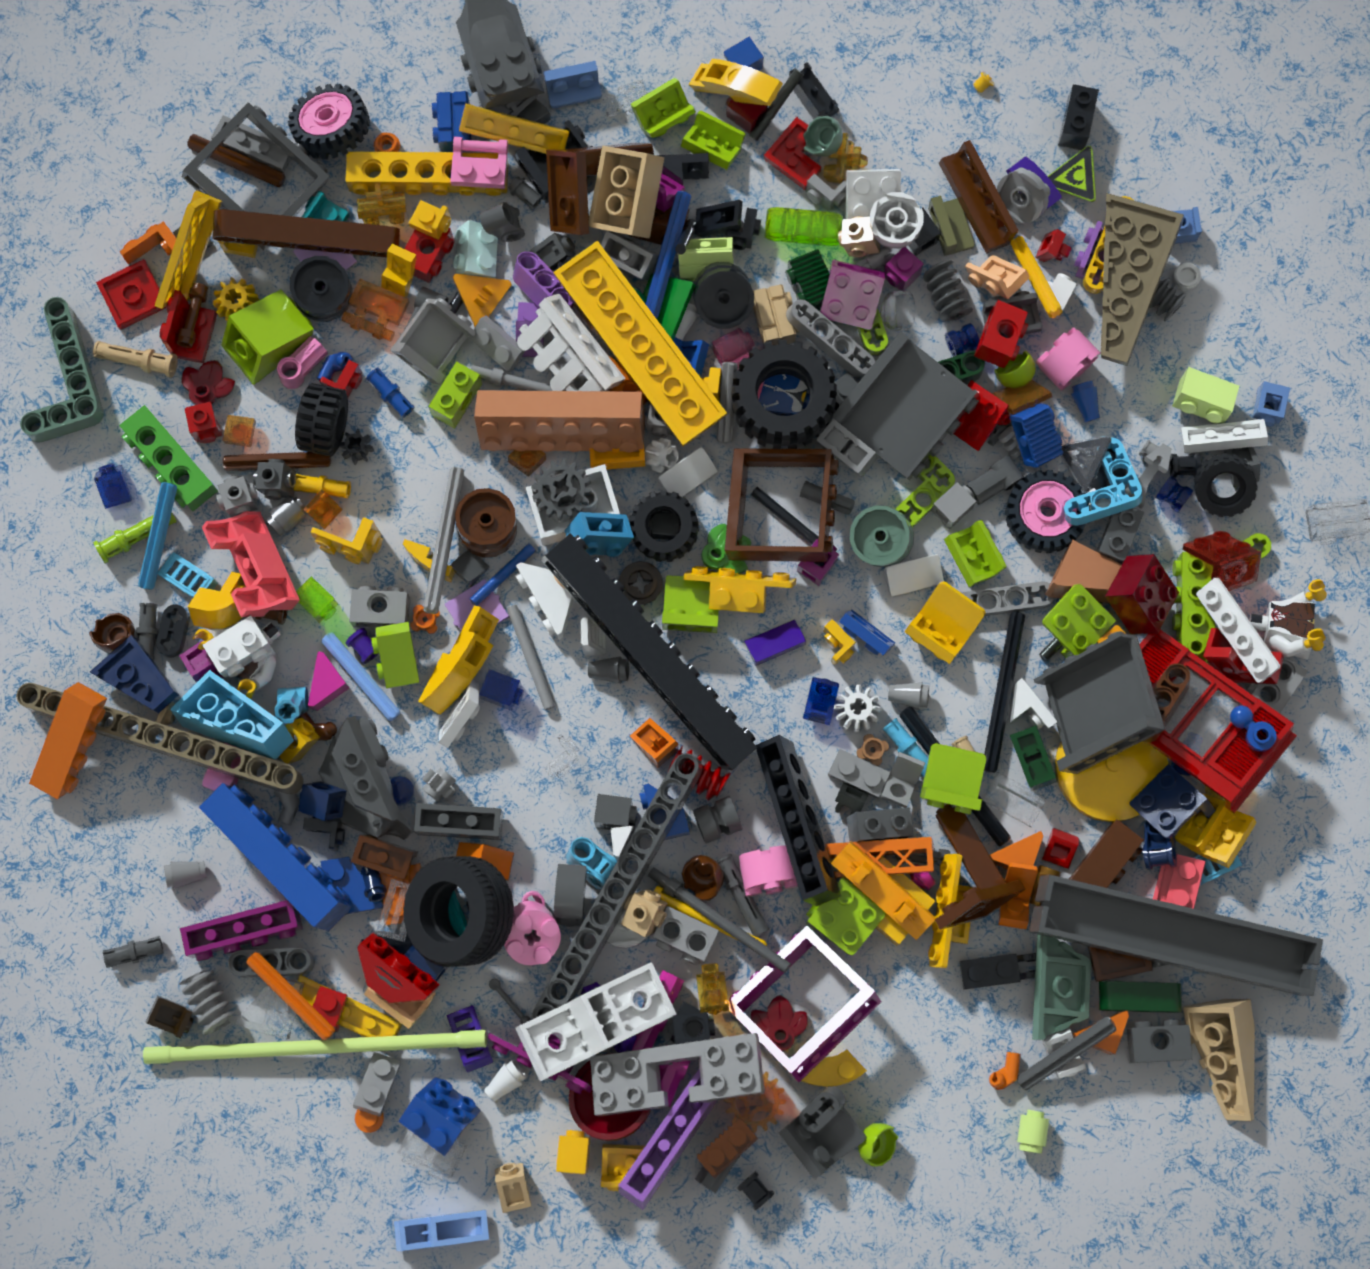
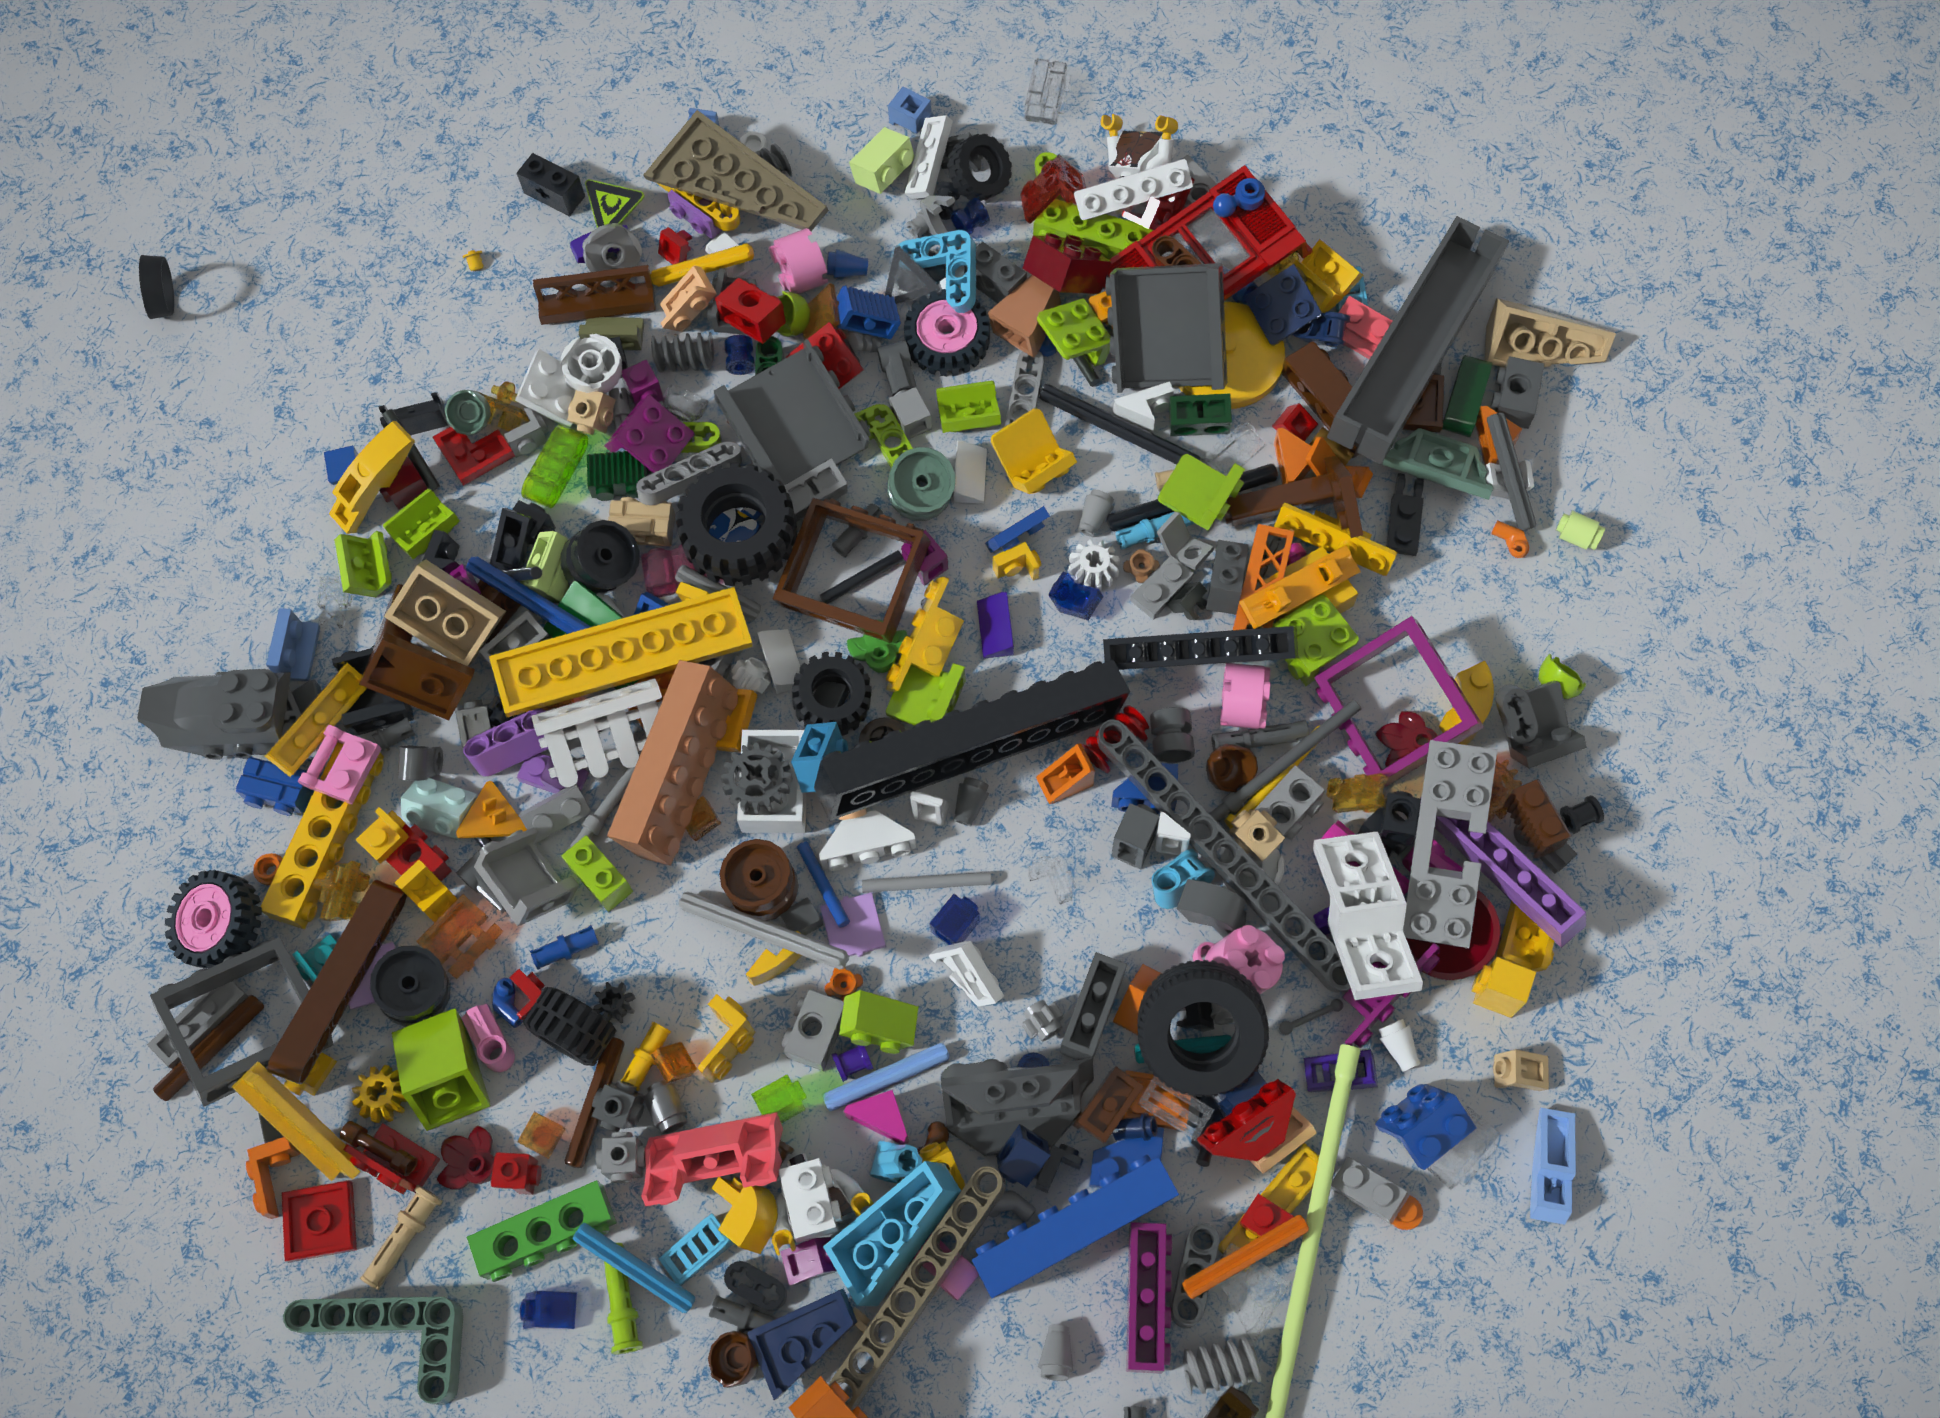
camera: 70 degrees left, 10 degrees down
(460, 667) = (918, 961): yellow slope -> none

